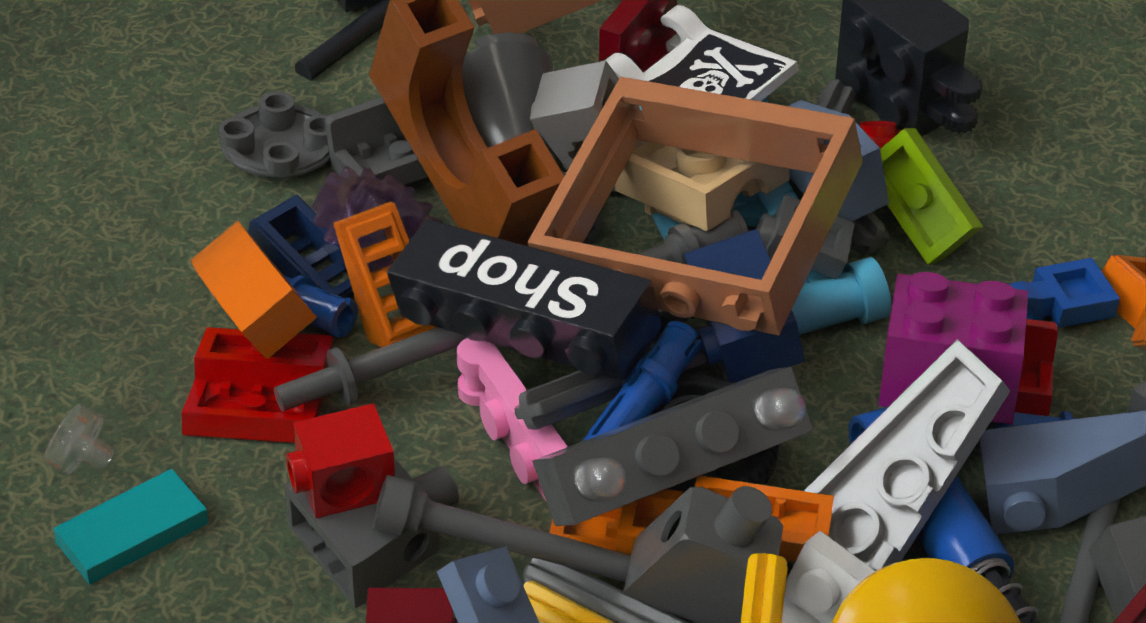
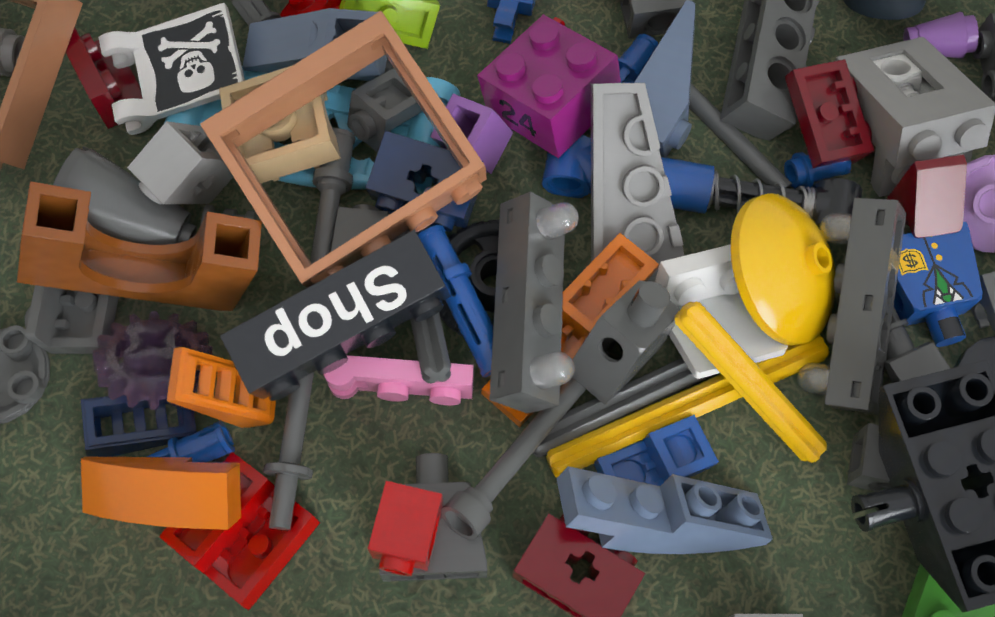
camera: 60 degrees left, 25 degrees up
(844, 331) = (481, 127): none -> medium lavender brick

